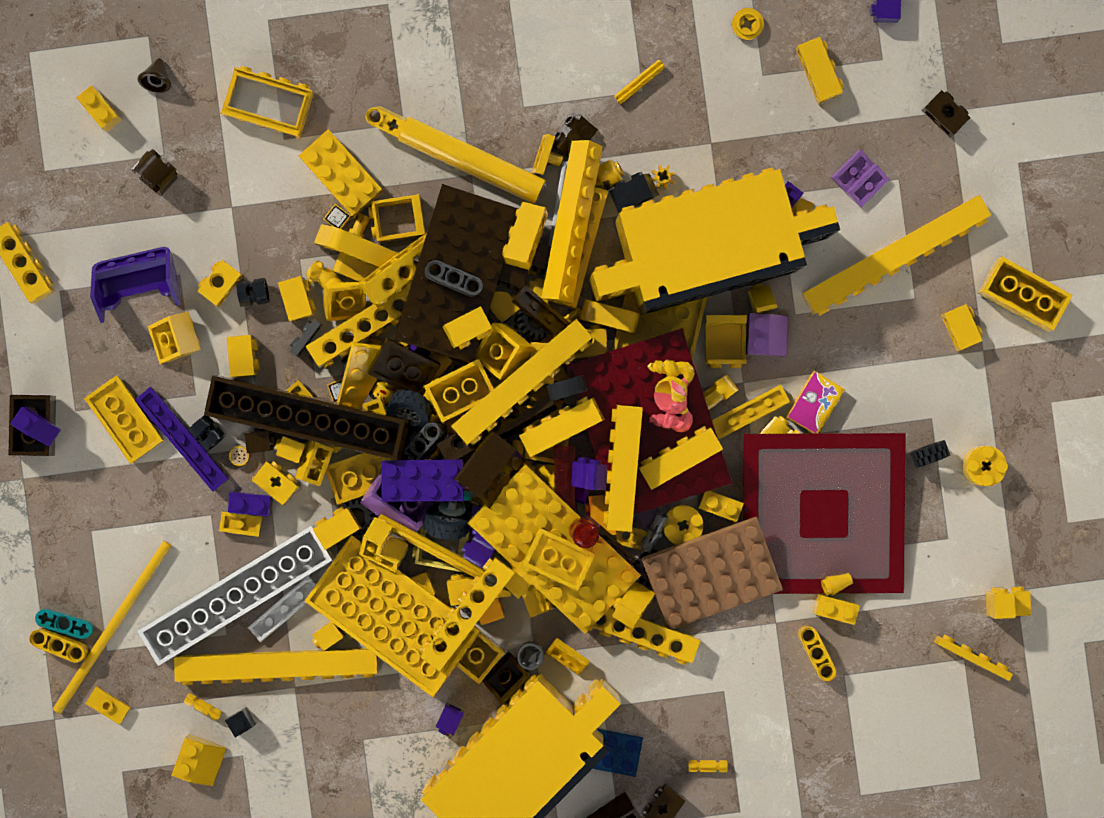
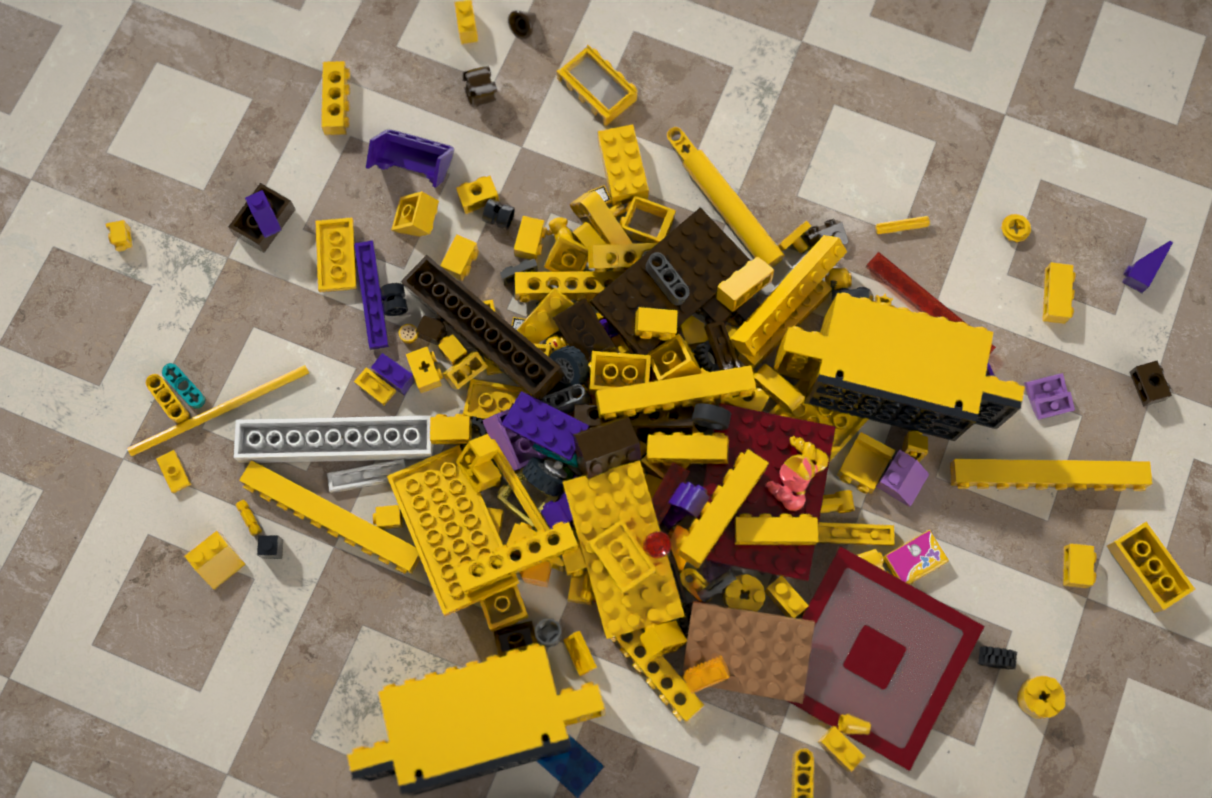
camera: 30 degrees right, 15 degrees down
(449, 719) = (445, 649): dark purple brick -> none
(688, 615) = (706, 674): none -> light orange brick
(703, 151) = (910, 290): none -> clear red plate

